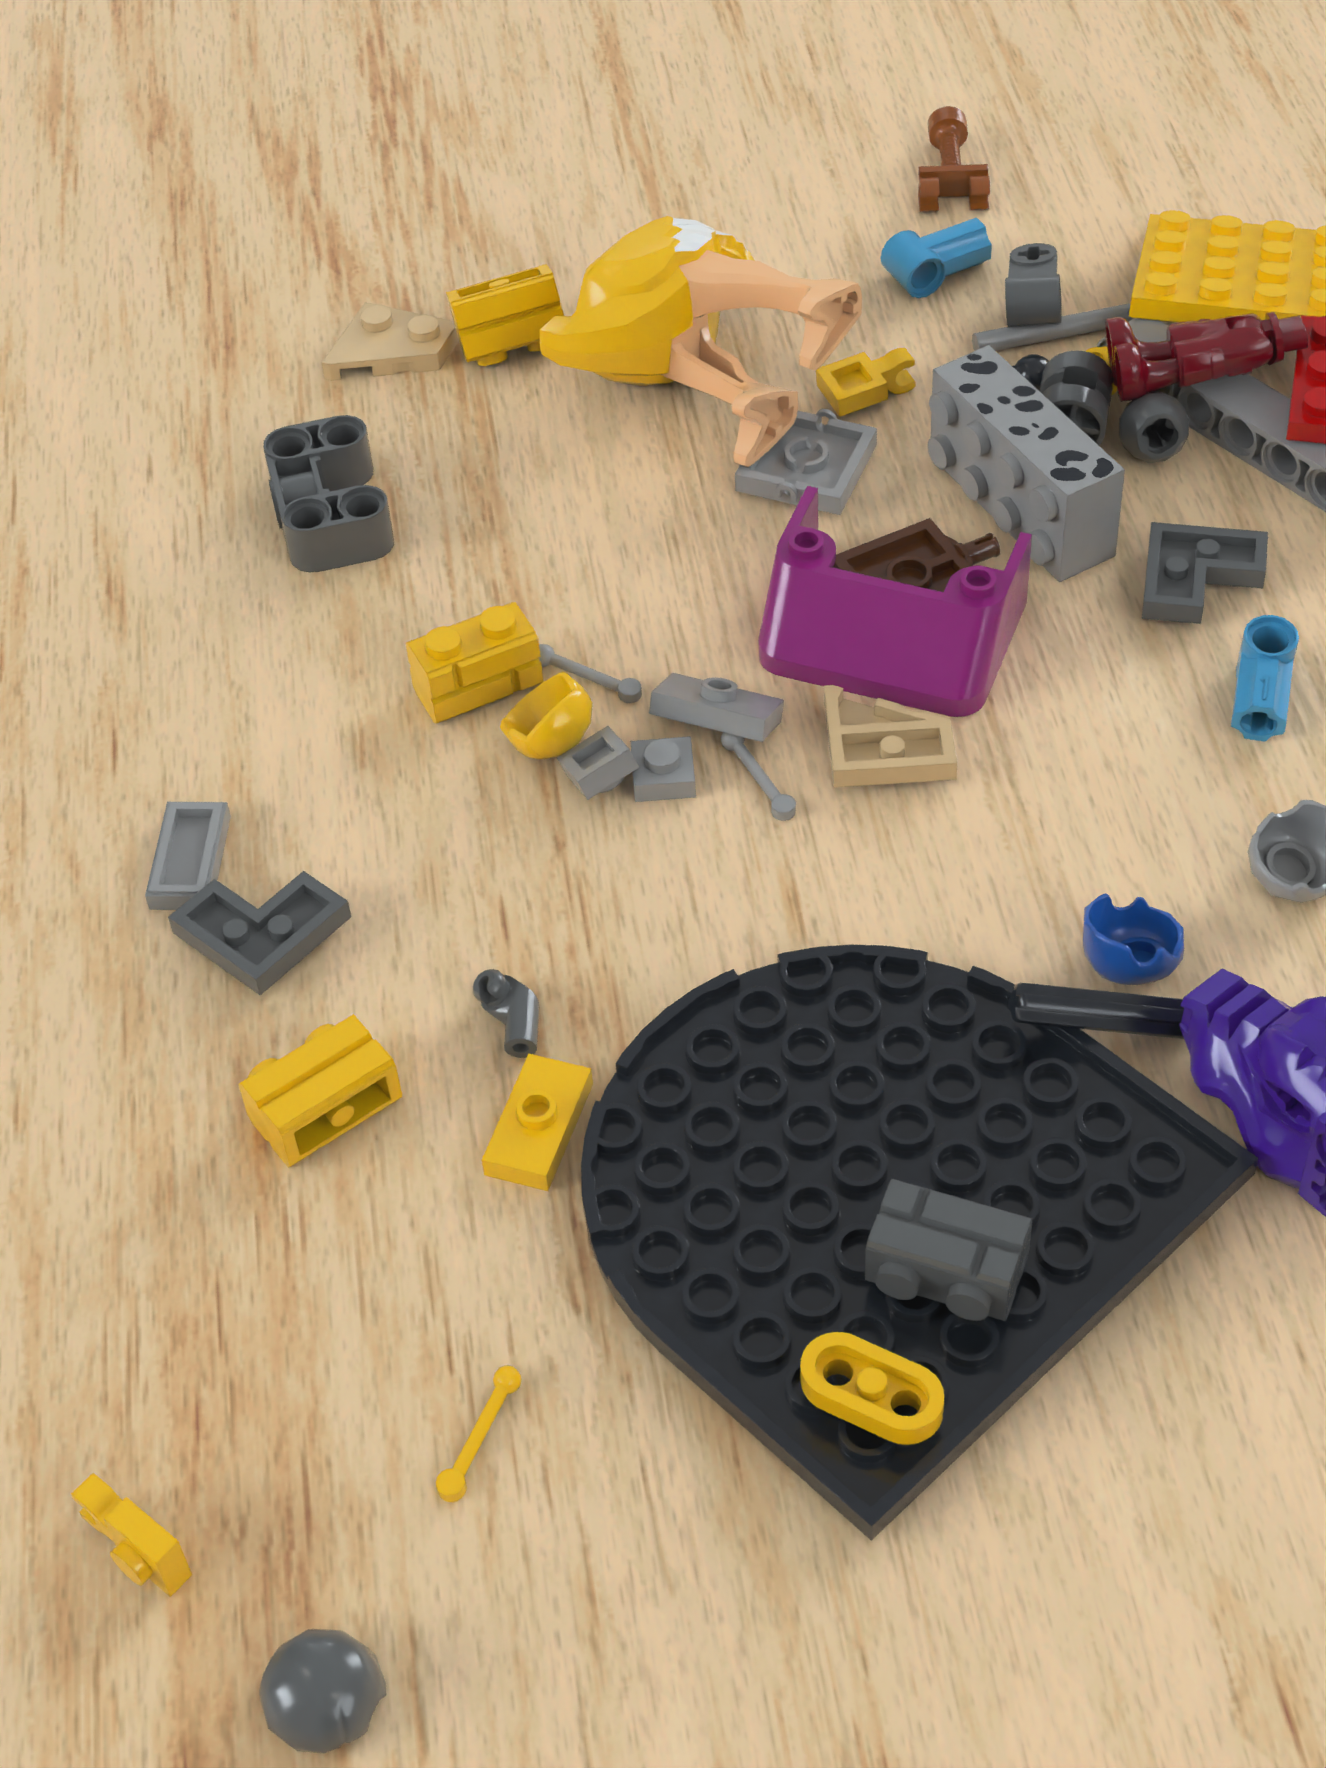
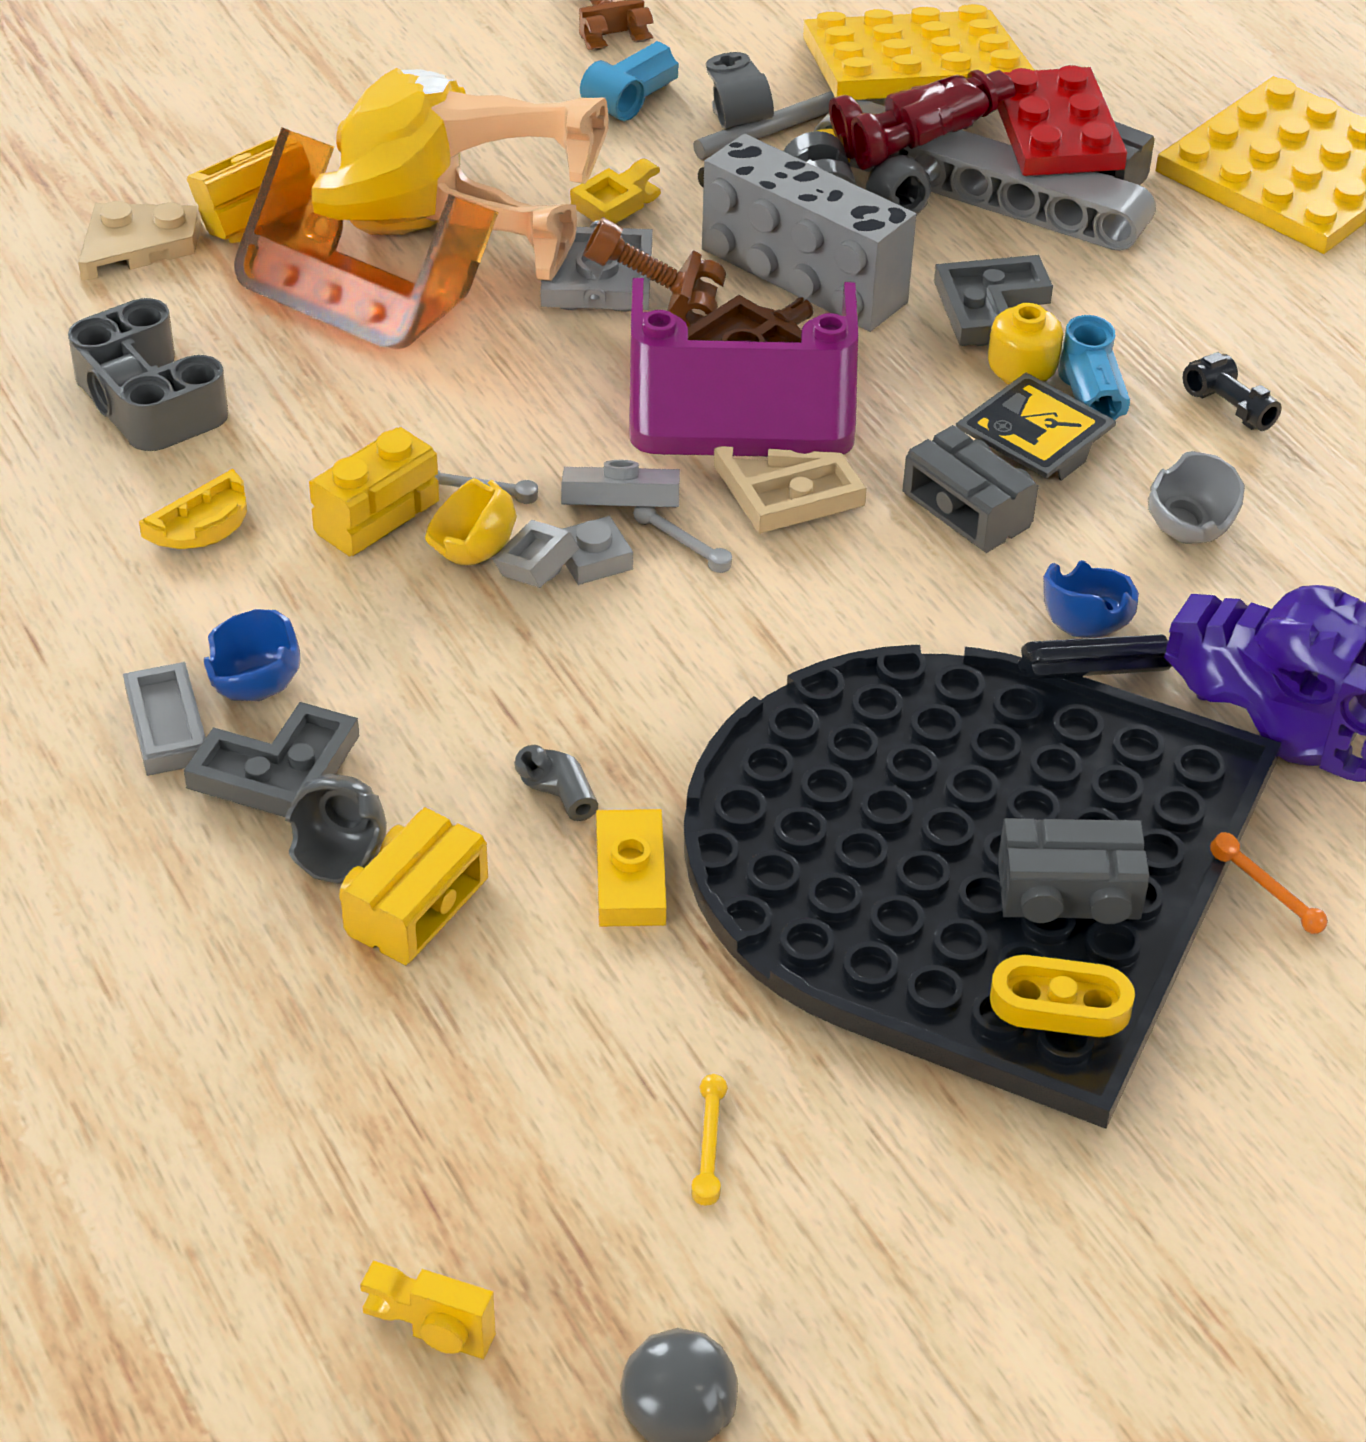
camera: 25 degrees left, 5 degrees down
(274, 1009) = (335, 826): none -> dark grey hair
(282, 813) = (252, 655): none -> blue hair
(310, 652) = (199, 516): none -> yellow plate
(533, 419) = (294, 257): none -> clear orange windscreen
(905, 488) = (686, 286): none -> dark orange bar
(1068, 786) = (970, 488): none -> dark grey brick
(1134, 1266) = (1227, 848): none -> orange hinge
(1173, 731) = (1037, 426): none -> piece
(1200, 635) = (1025, 341): none -> yellow head

